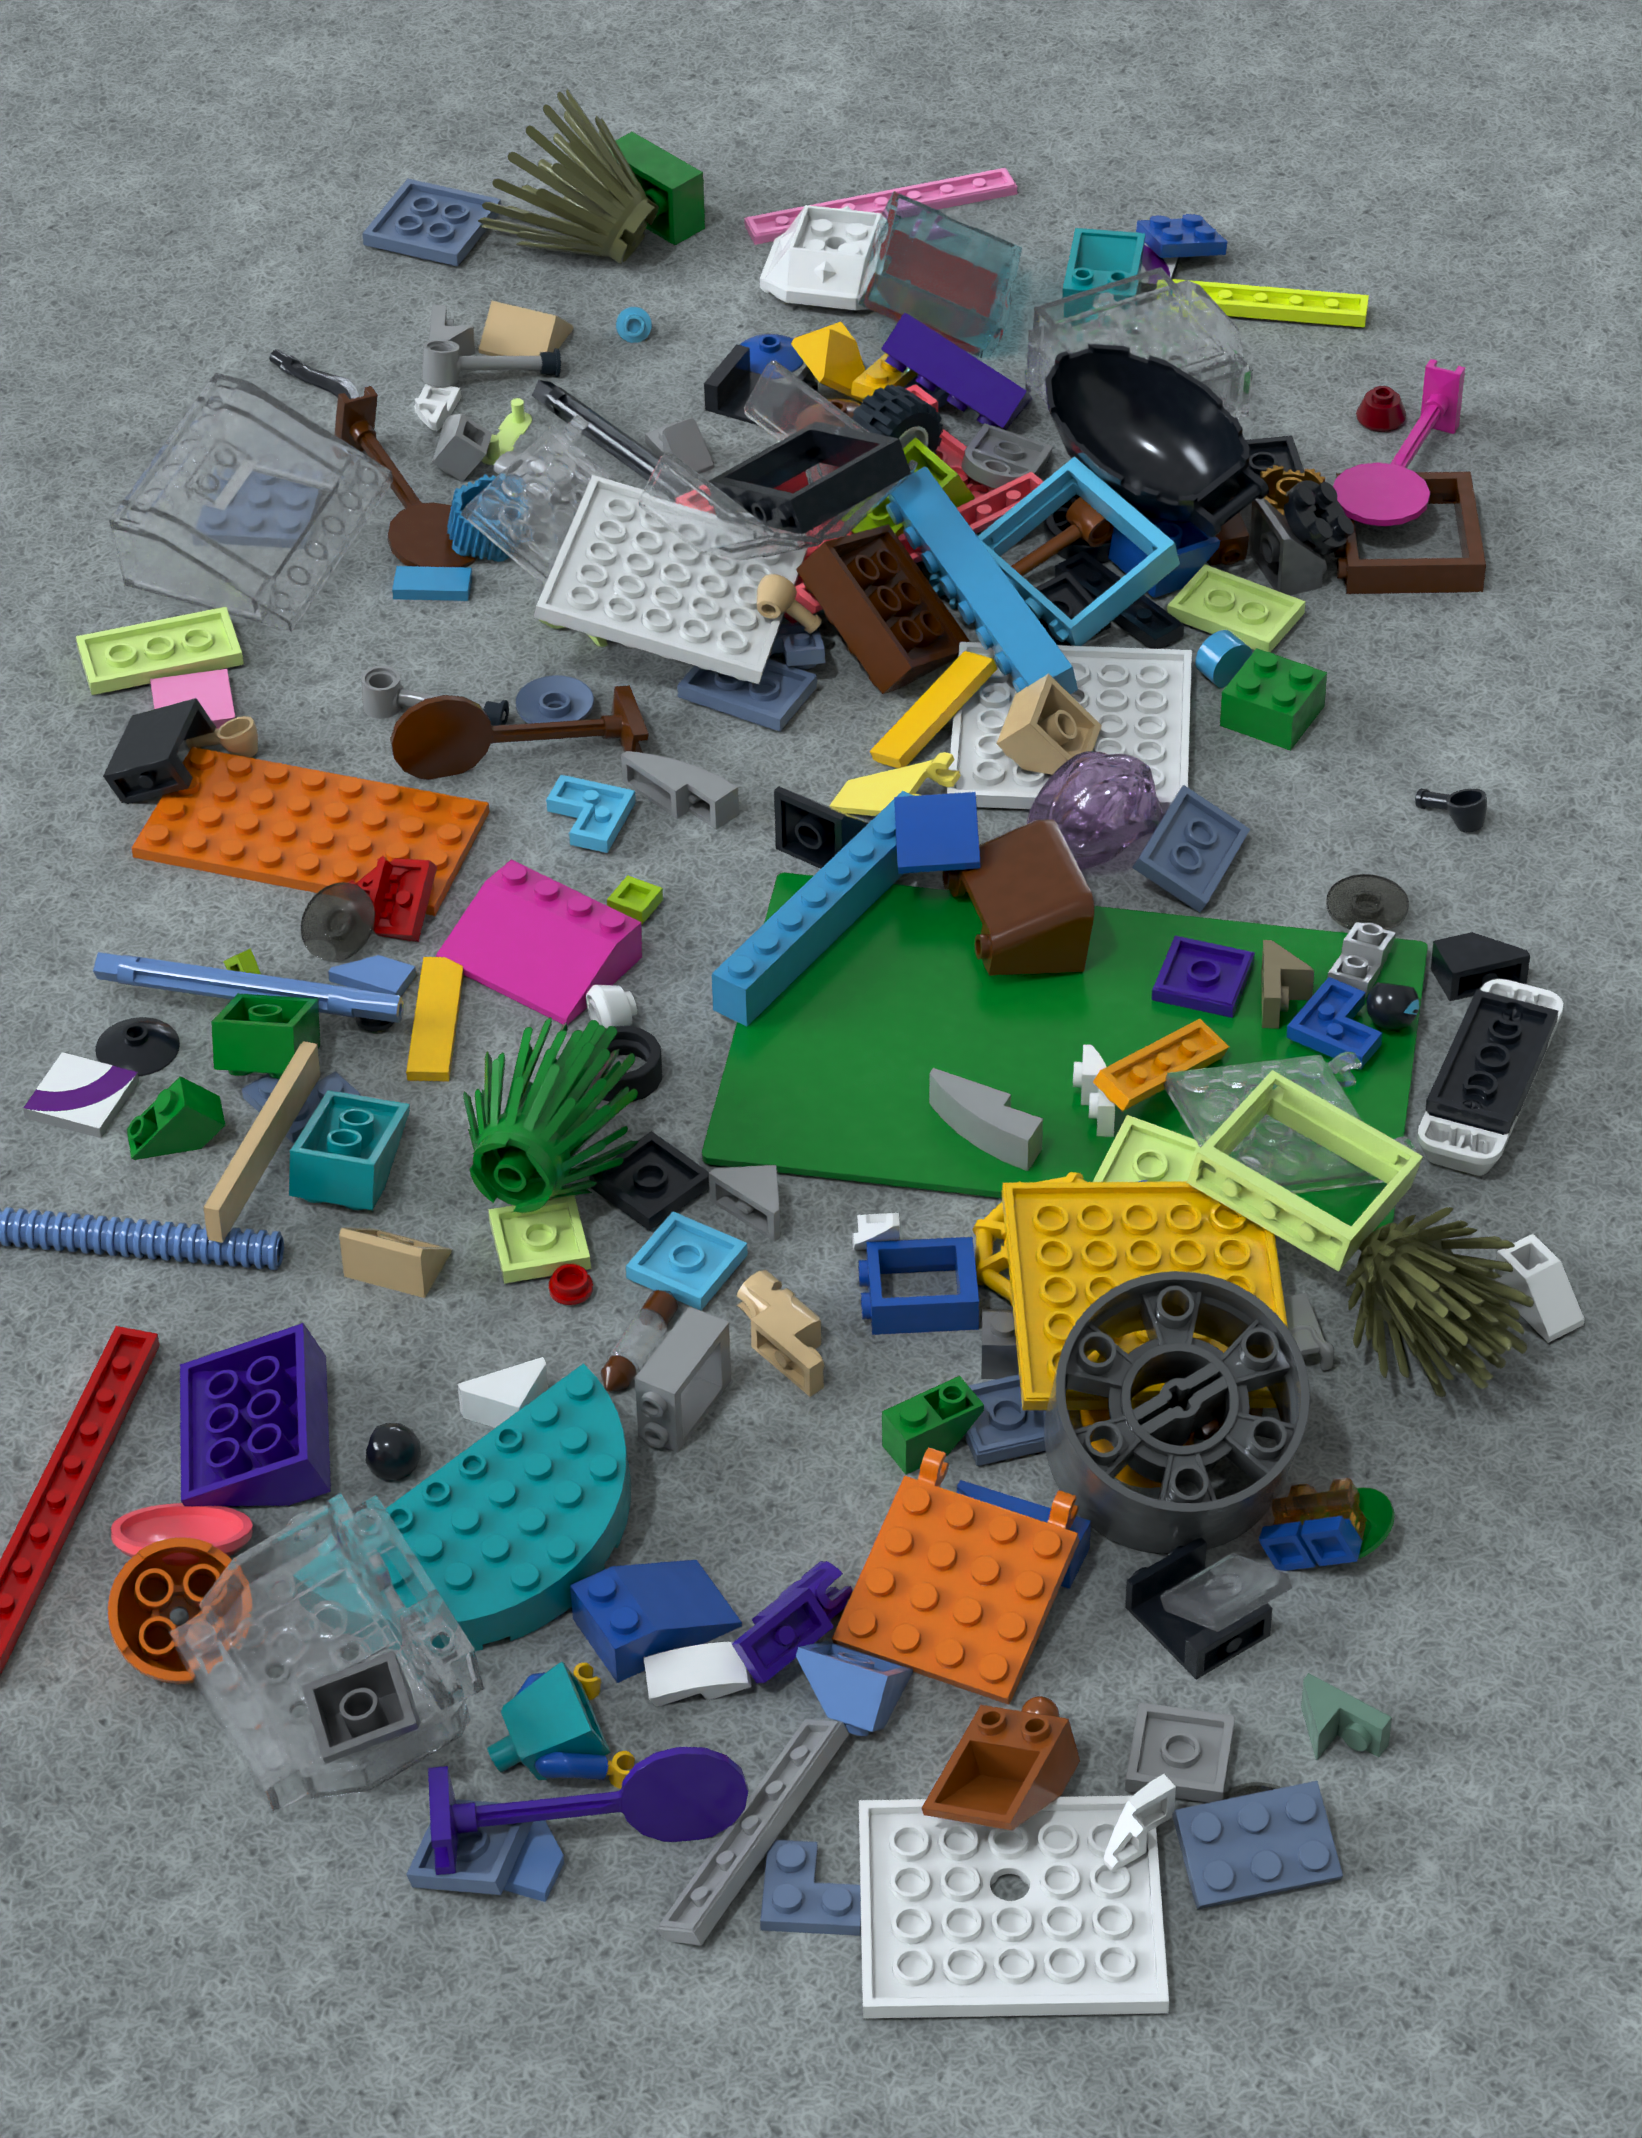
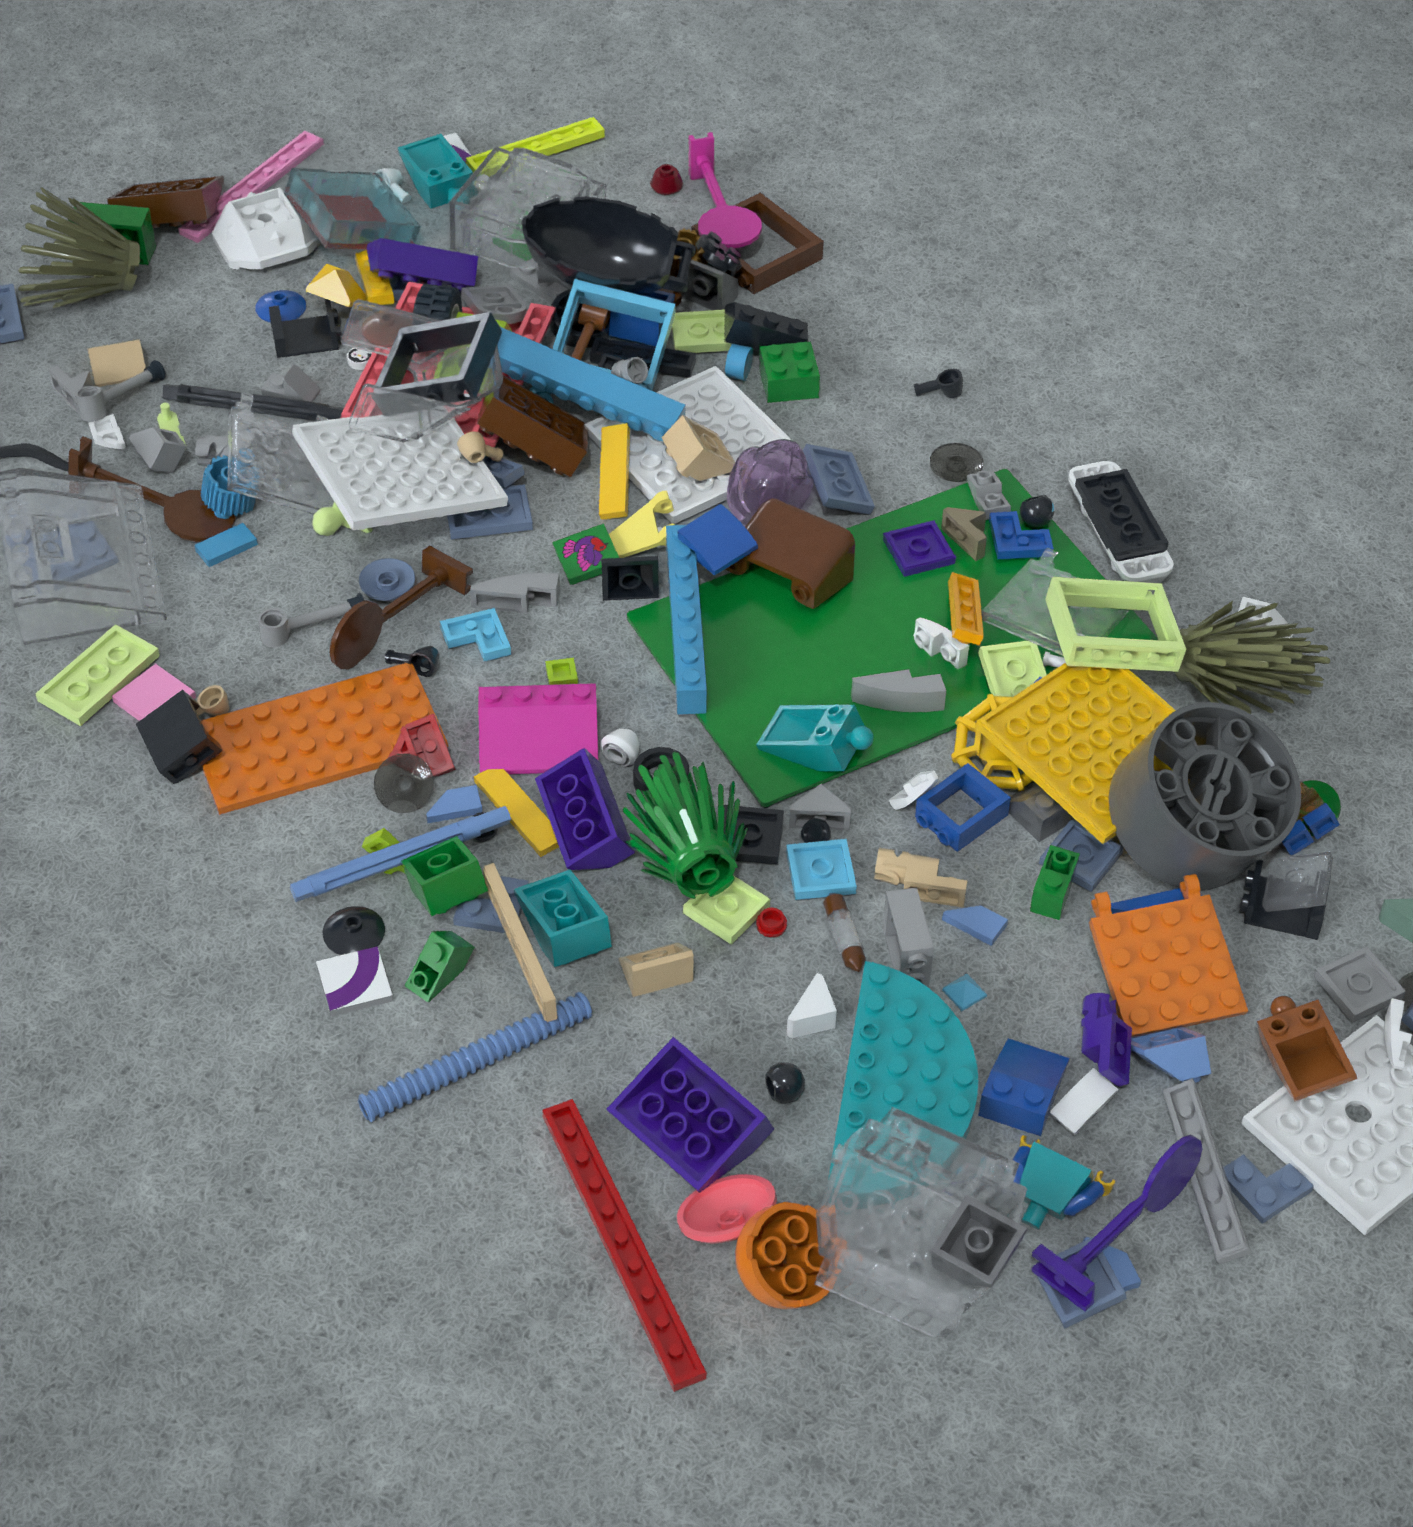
camera: 40 degrees left, 5 degrees up
(493, 1025) = (584, 813): none -> dark purple slope
(502, 803) = (424, 657): none -> black bar
(633, 324) = (181, 324): medium azure plate -> none
(705, 1484) = (964, 992): none -> medium azure slope
(724, 1216) = (815, 831): none -> black plate
(759, 180) = (174, 200): none -> reddish brown slope
(803, 1420) = (977, 922): none -> medium blue tile
(813, 777) = (582, 553): none -> green tile
(832, 1113) = (816, 735): none -> teal slope
(1042, 266) = (393, 179): none -> white bar
(1049, 596) = (632, 369): none -> light grey wheel
(1181, 236) = (455, 127): blue plate -> none
(1279, 625) = (758, 328): none -> black slope
(1471, 960) = (1044, 467): black slope -> none

